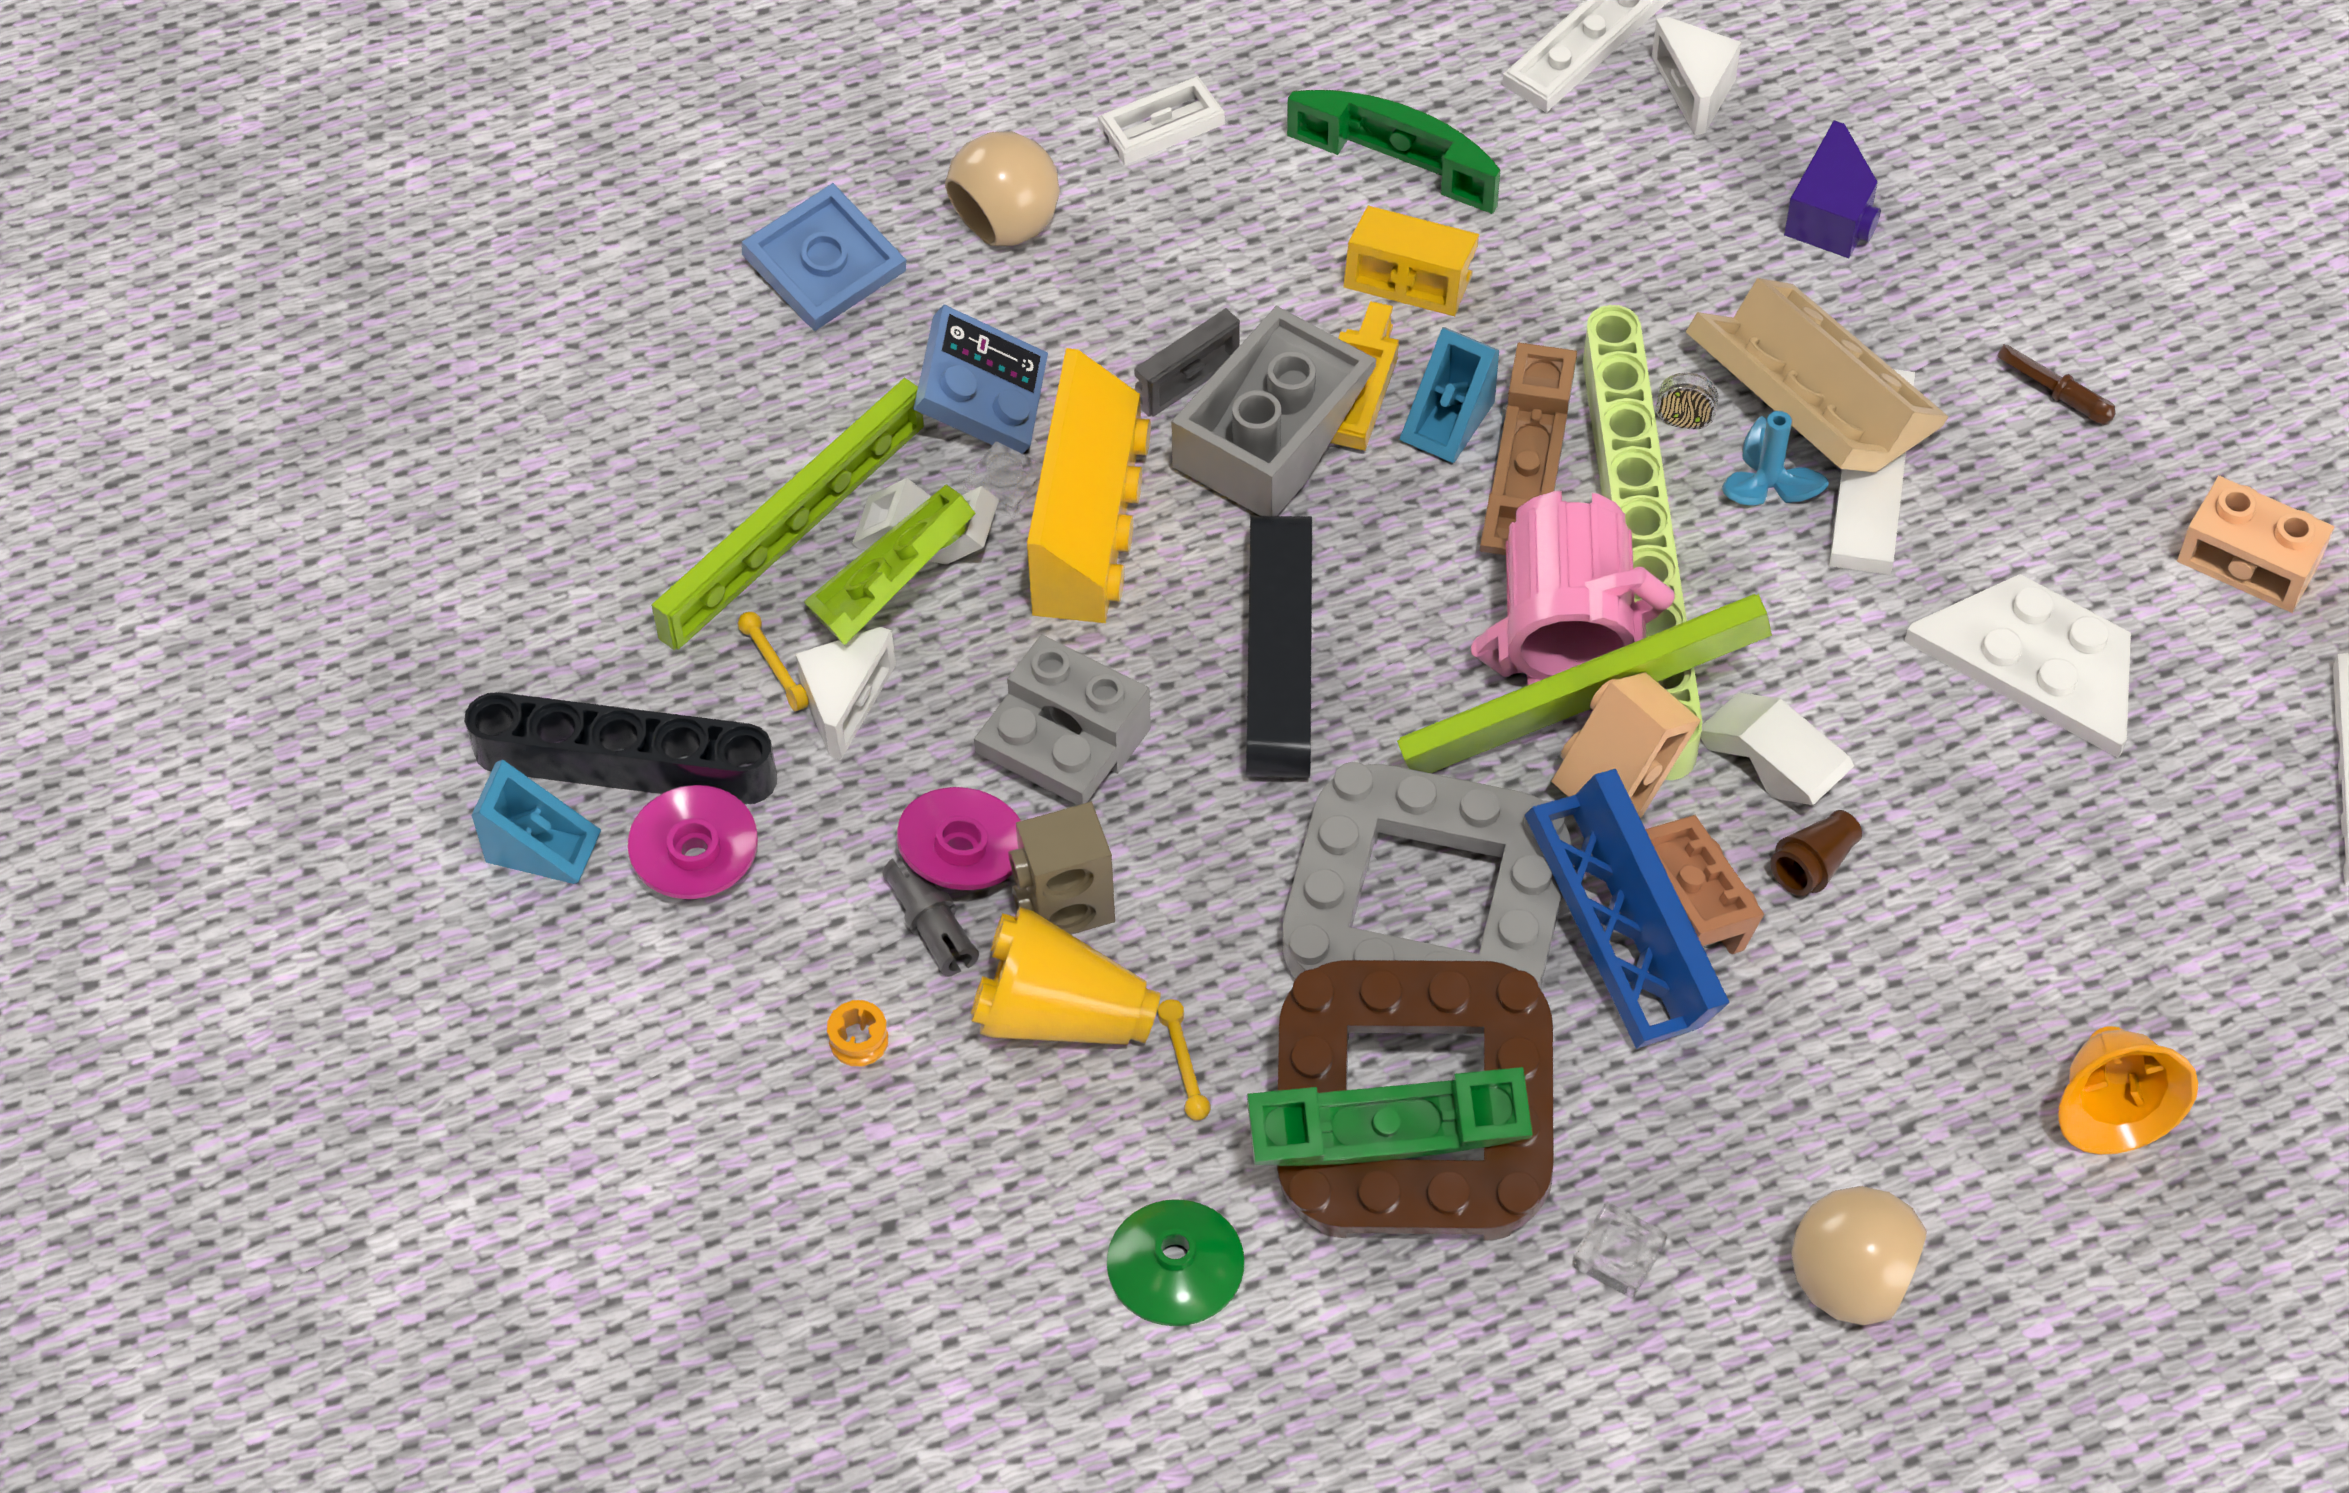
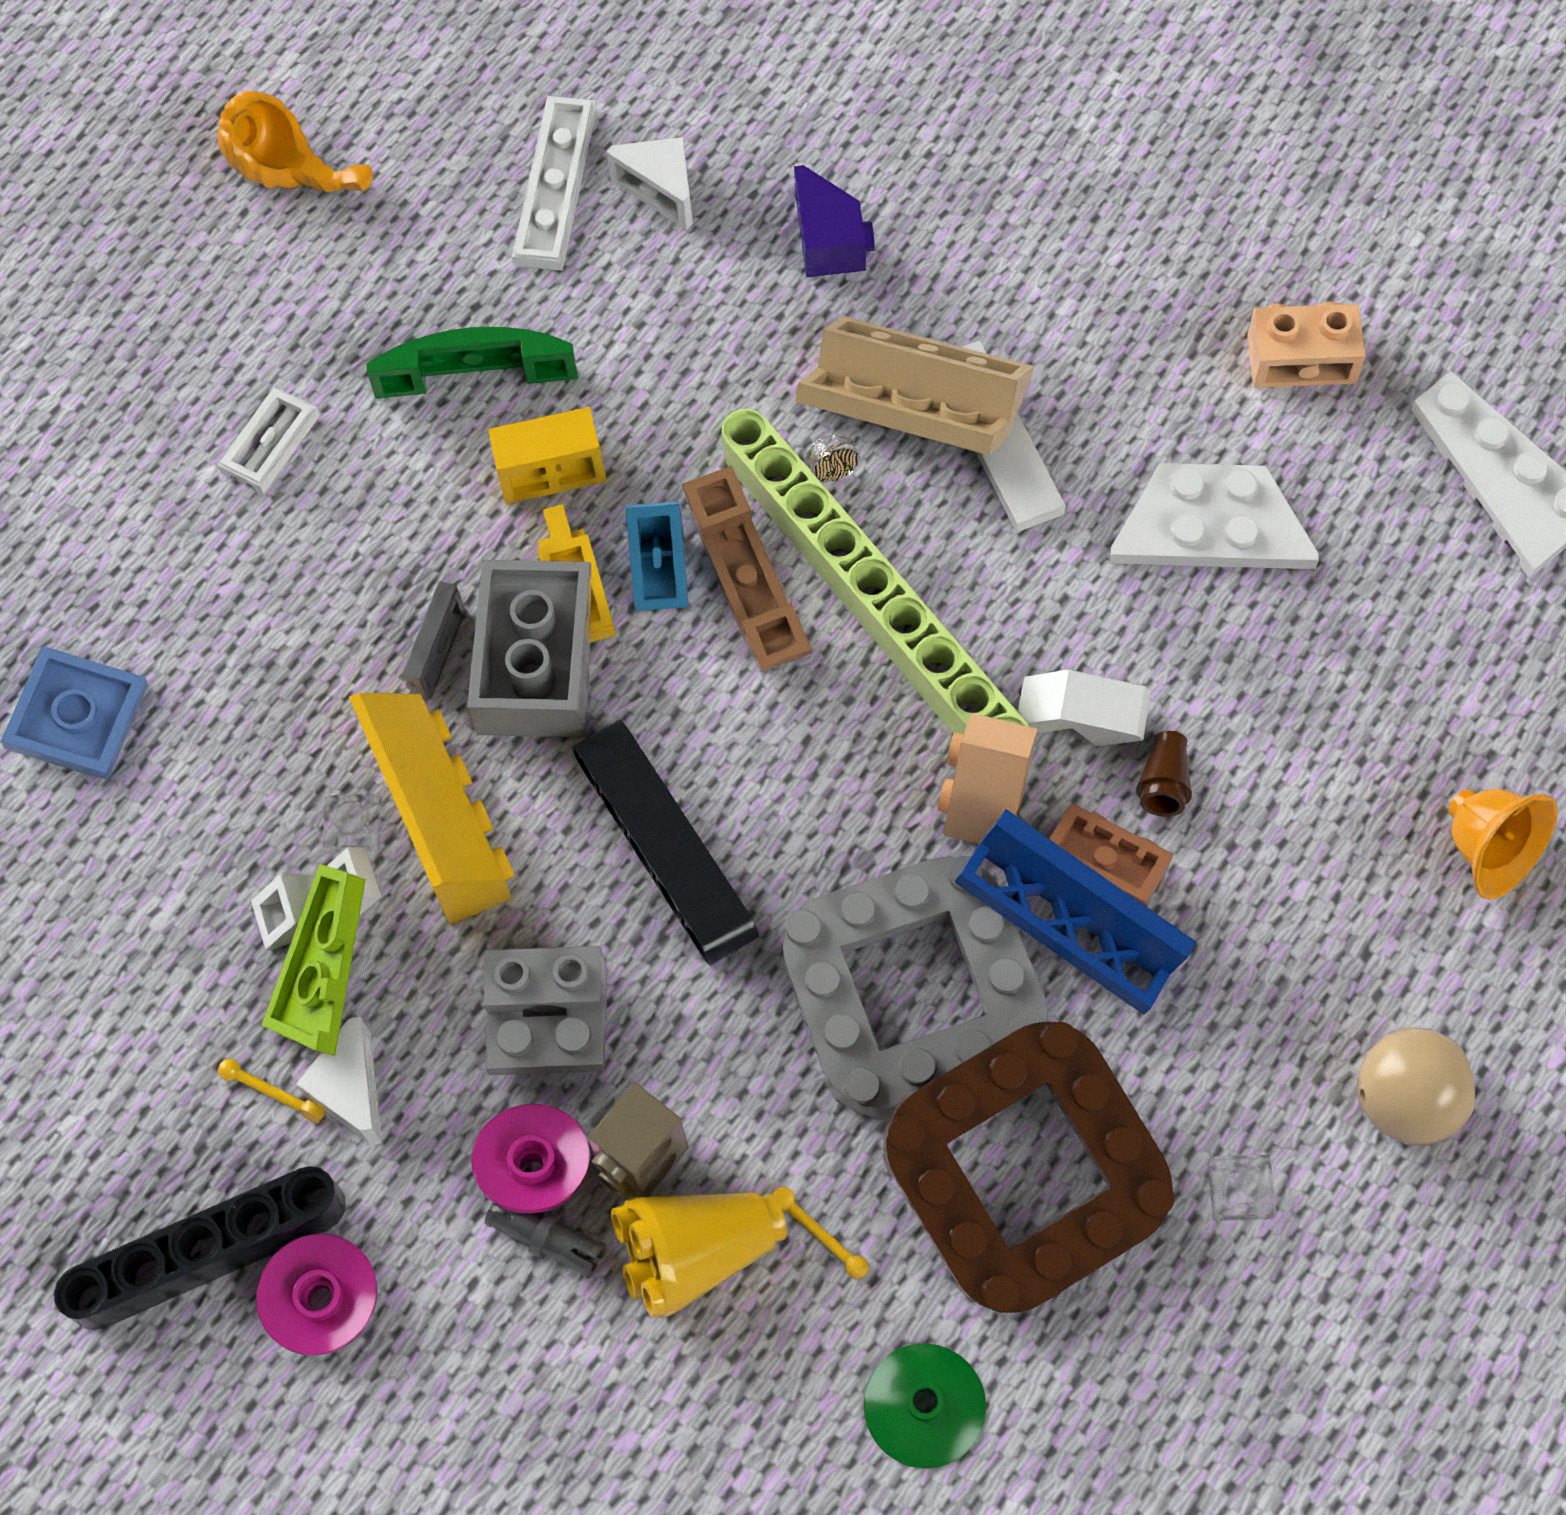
camera: 30 degrees left, 10 degrees up
(531, 828) = (177, 1364): dark azure slope -> none
(787, 516) = (201, 961): lime tile -> none
(860, 1013) = (540, 1381): light orange bush -> none
(980, 380) = (281, 752): medium blue plate -> none
(1003, 187) = (187, 572): tan helmet -> none
(1389, 1121) = (1032, 1204): green slope -> none
(1569, 589) = (869, 677): bright pink container -> none
(1573, 689) = (928, 747): lime tile -> none
(1766, 453) = (920, 468): dark azure plant -> none
(2063, 387) = (1091, 293): reddish brown piece -> none

